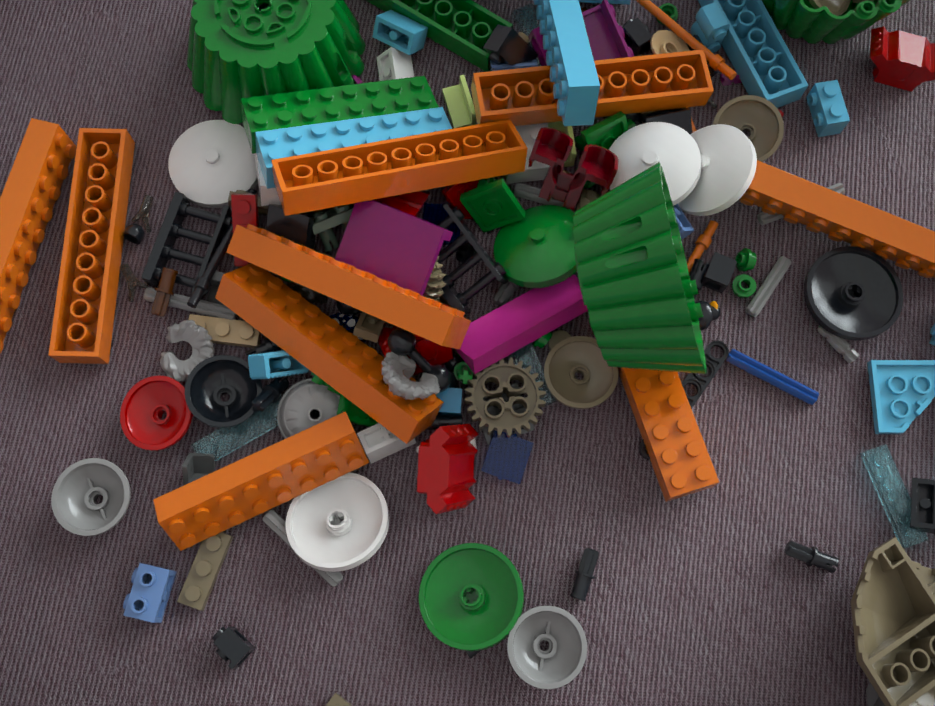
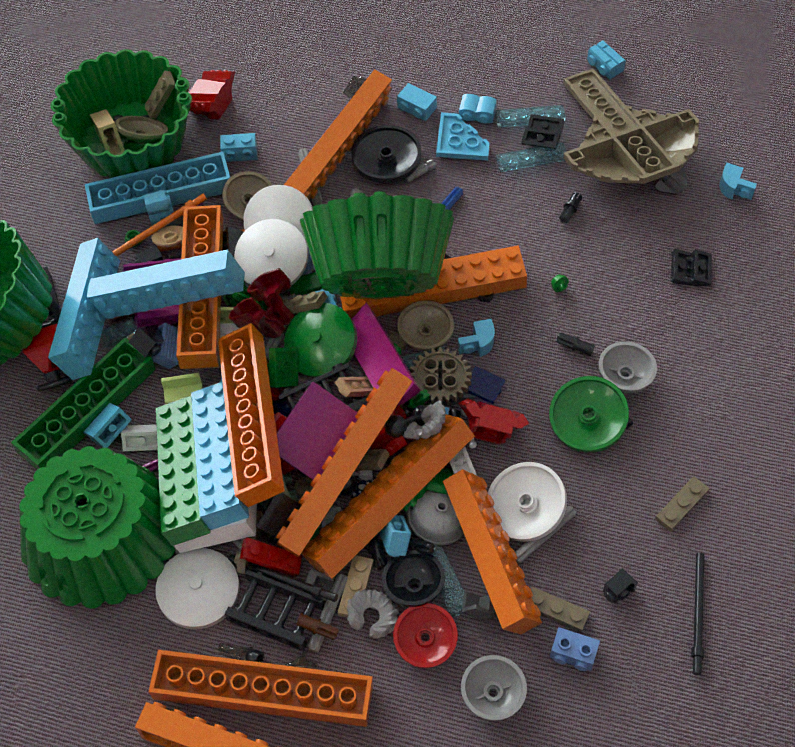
camera: 80 degrees left, 15 degrees down
(471, 291) = (354, 386): none -> tan plate
(574, 450) = (480, 341): none -> medium azure brick
(678, 547) = (559, 283): none -> green plate

